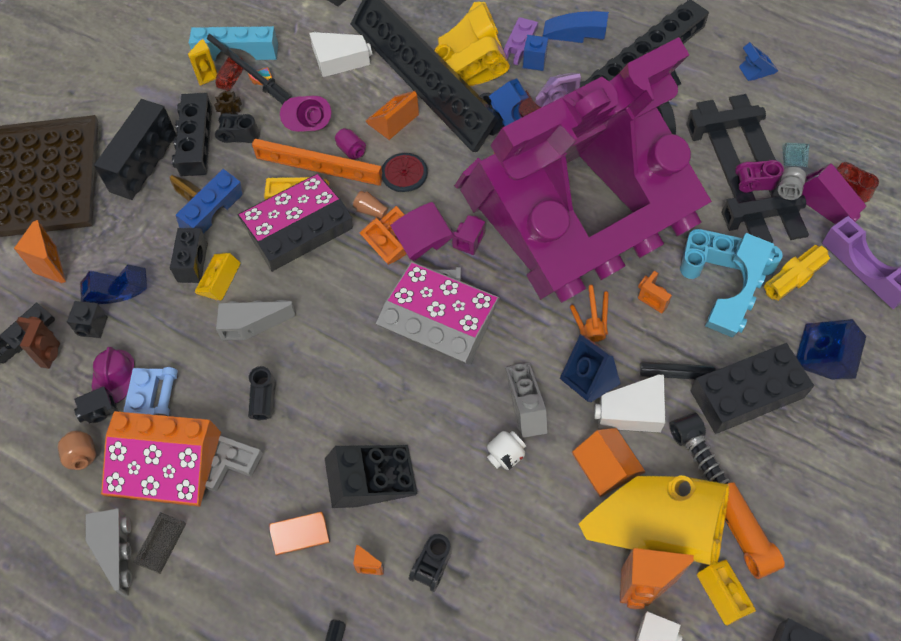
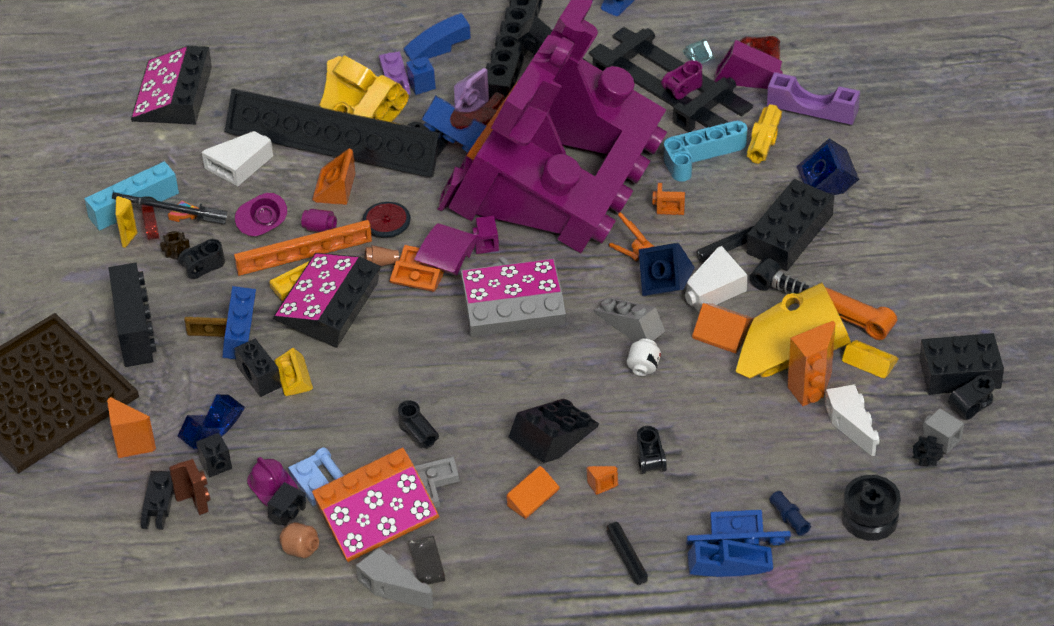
camera: 35 degrees left, 15 degrees down
(192, 134) = (167, 283): black brick -> none
(248, 319) = (354, 384): light grey slope -> none
(751, 258) = (726, 136): medium azure arch -> none
(792, 183) = (715, 70): light grey wheel -> none

